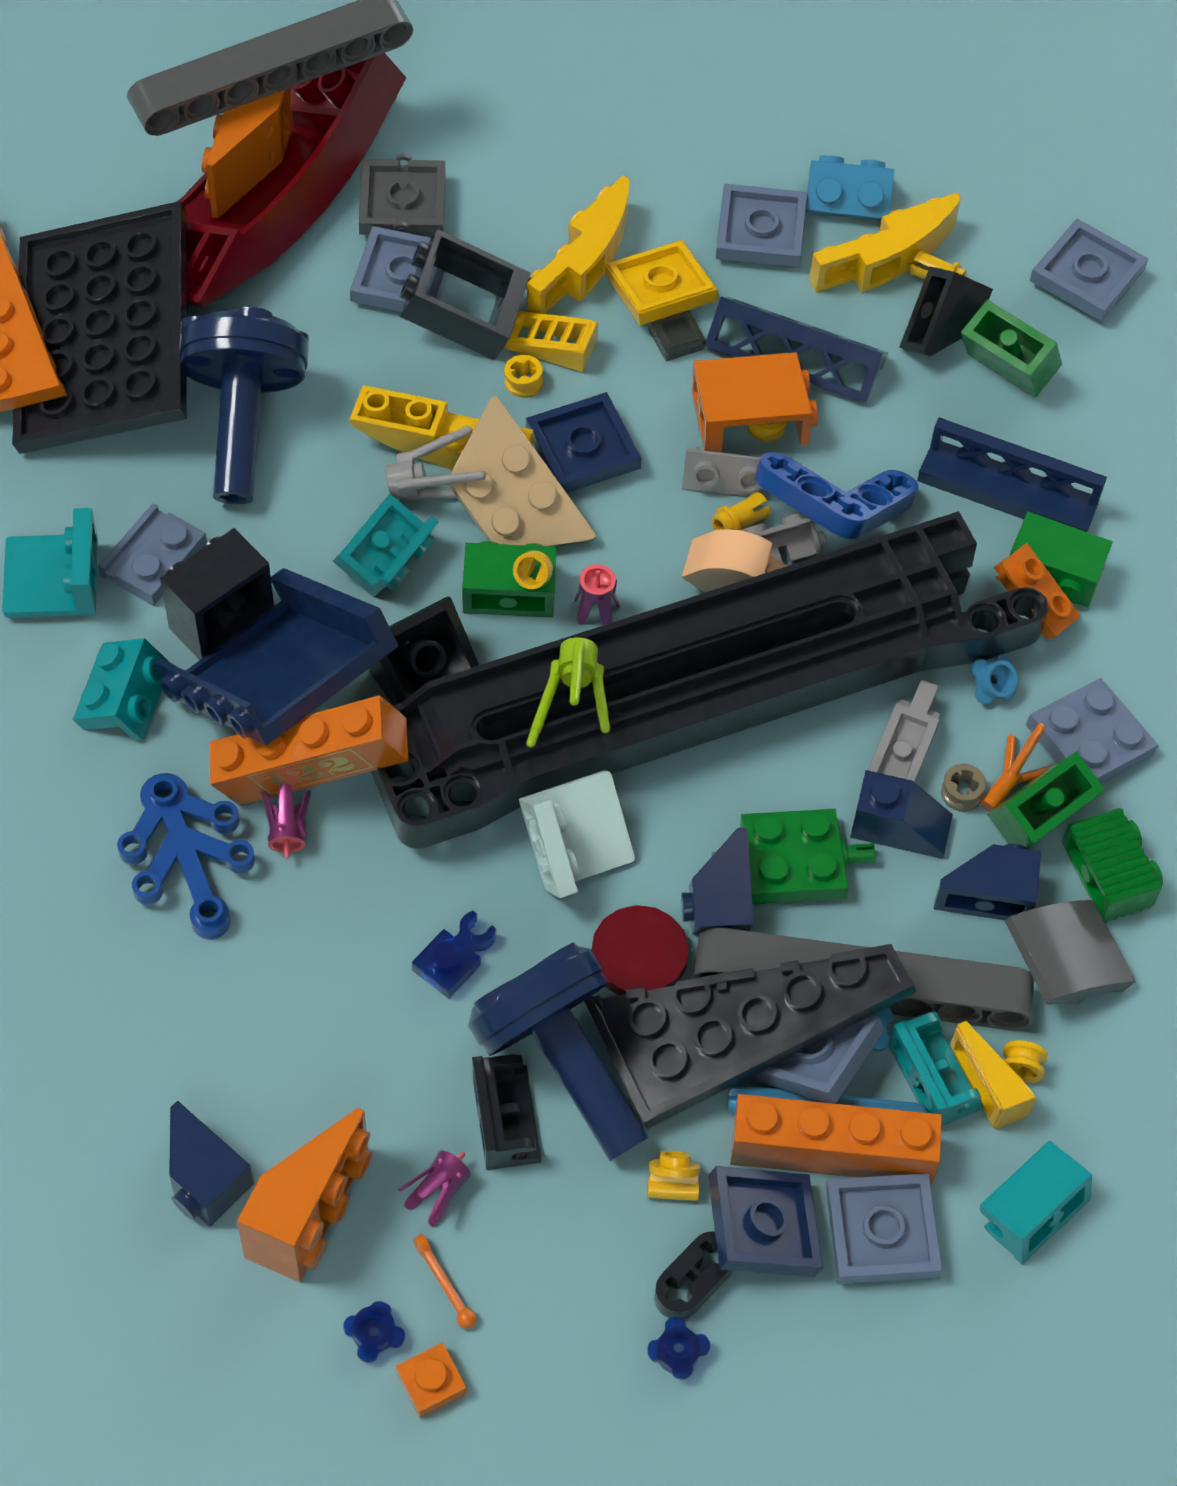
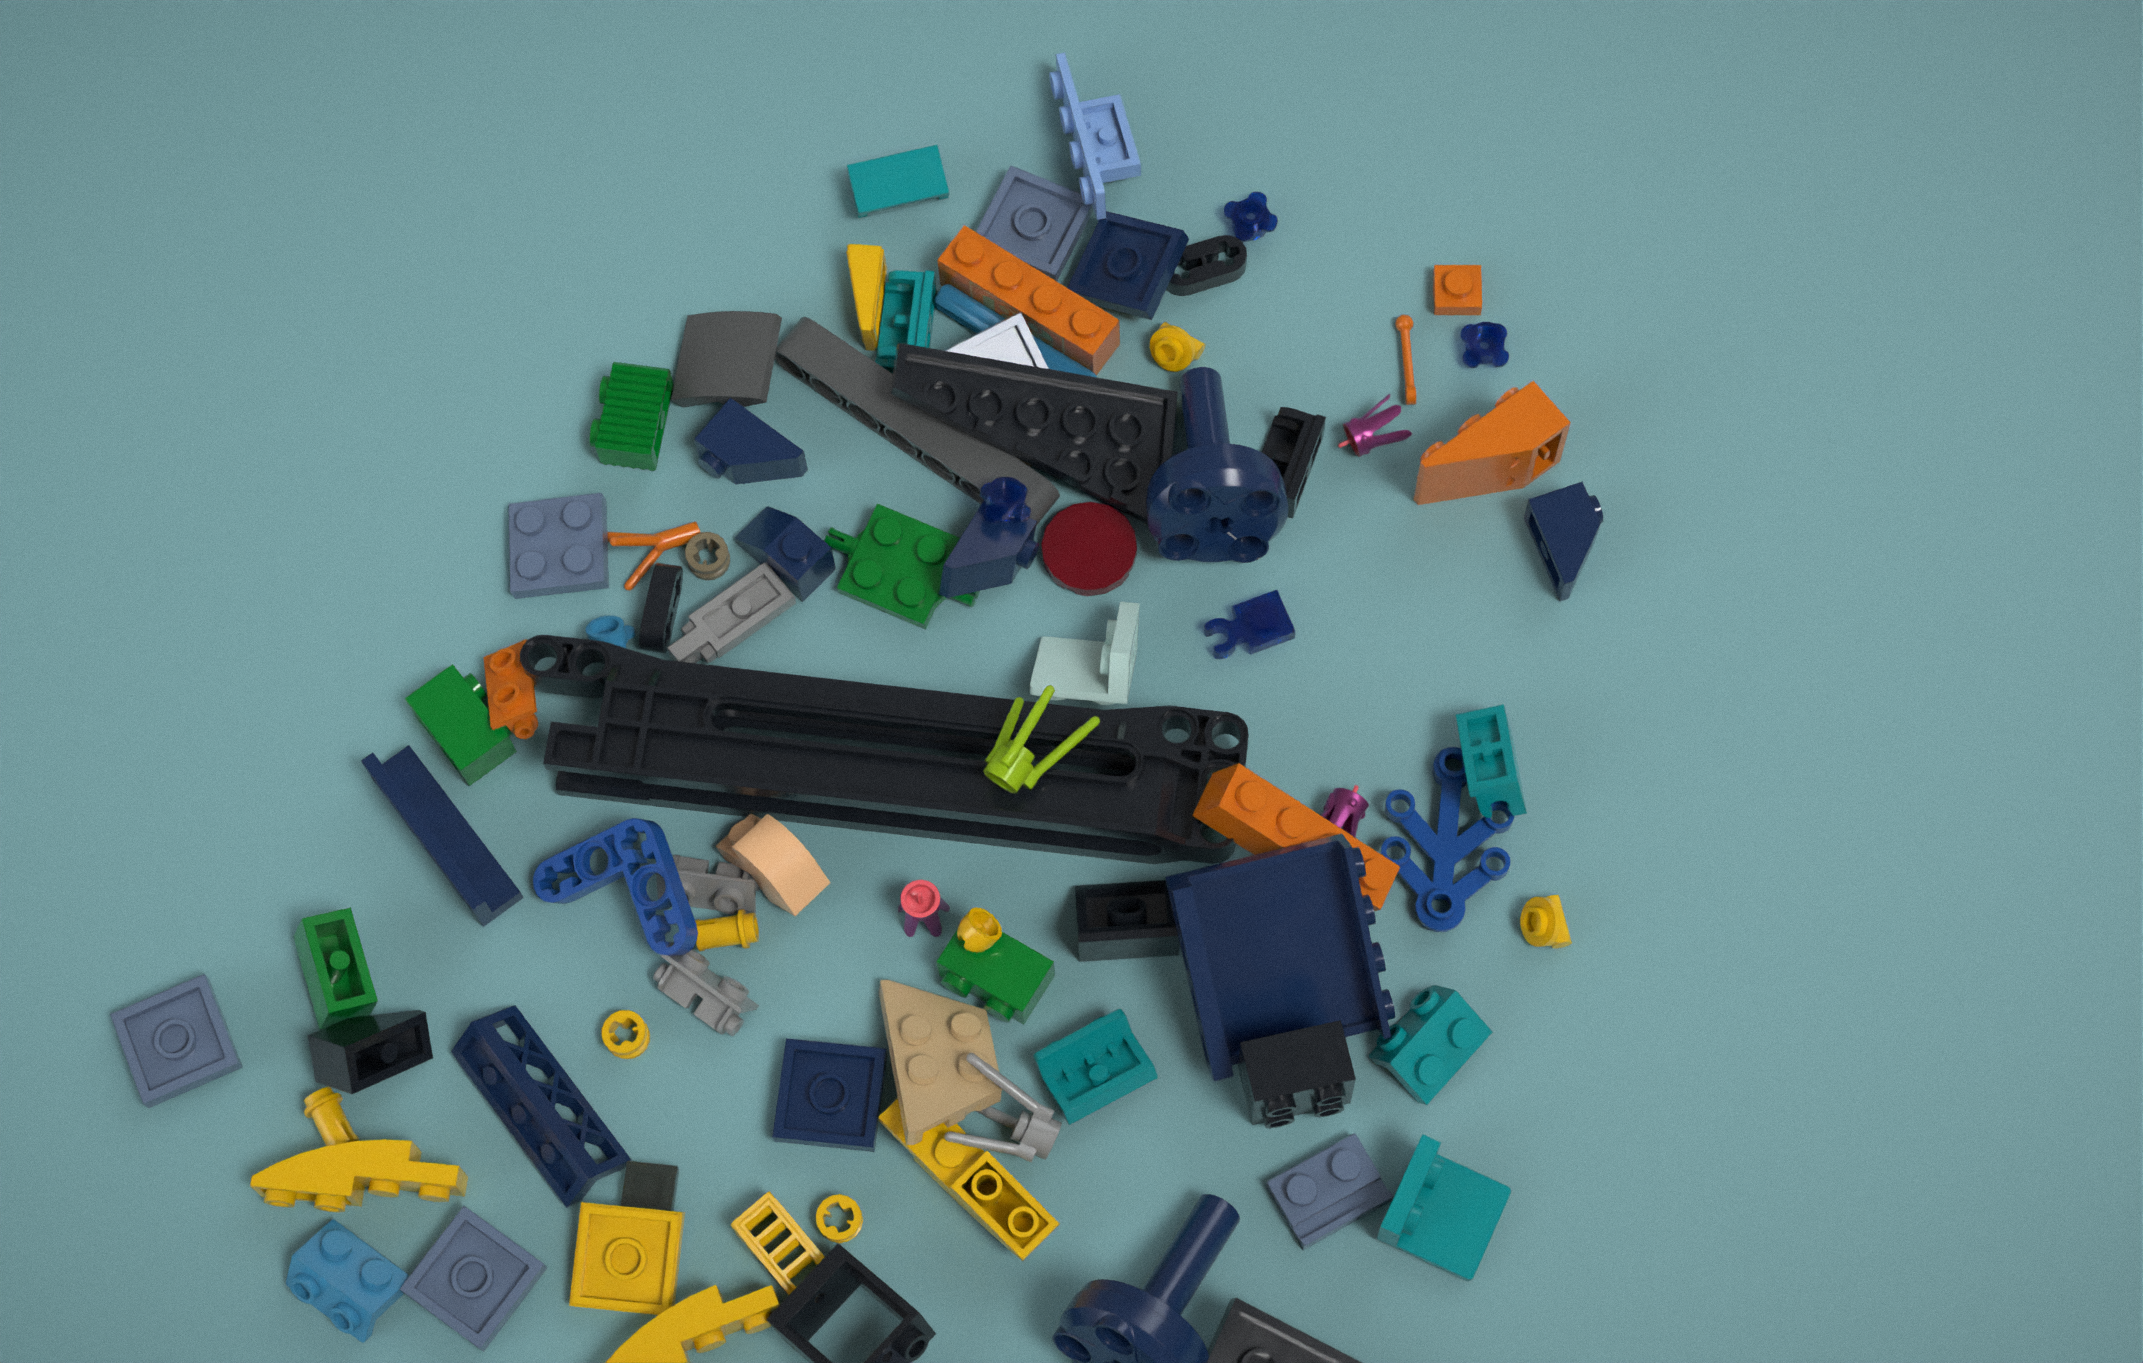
camera: 145 degrees left, 10 degrees up
(65, 825) = (1545, 922): none -> yellow plate
(172, 914) = (1490, 759): none -> teal hinge
(733, 905) = (1009, 491): none -> clear blue plate
(751, 393) = (634, 1045): orange panel -> none
(877, 1343) = (1100, 135): none -> light blue bracket
(969, 721) = (661, 607): none -> black beam
(1026, 1060) = (829, 293): yellow bush -> none
(1046, 801) = (654, 487): green brick -> none

